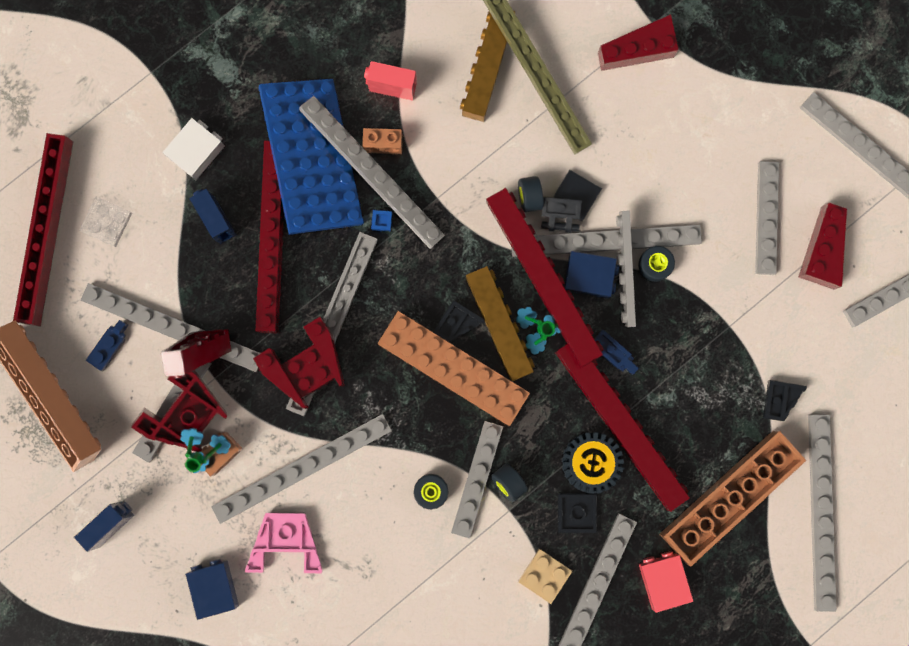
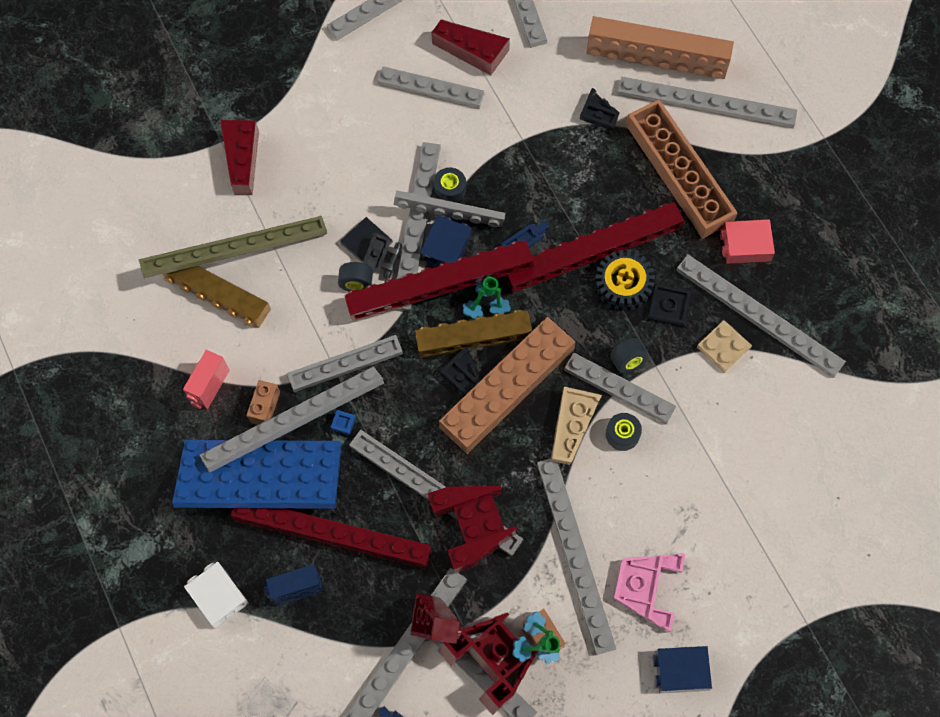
camera: 75 degrees left, 15 degrees down
(434, 440) = (573, 419): none -> tan wing
(441, 207) = (345, 363): none -> light grey plate
(872, 450) = (659, 47): none -> nougat brick

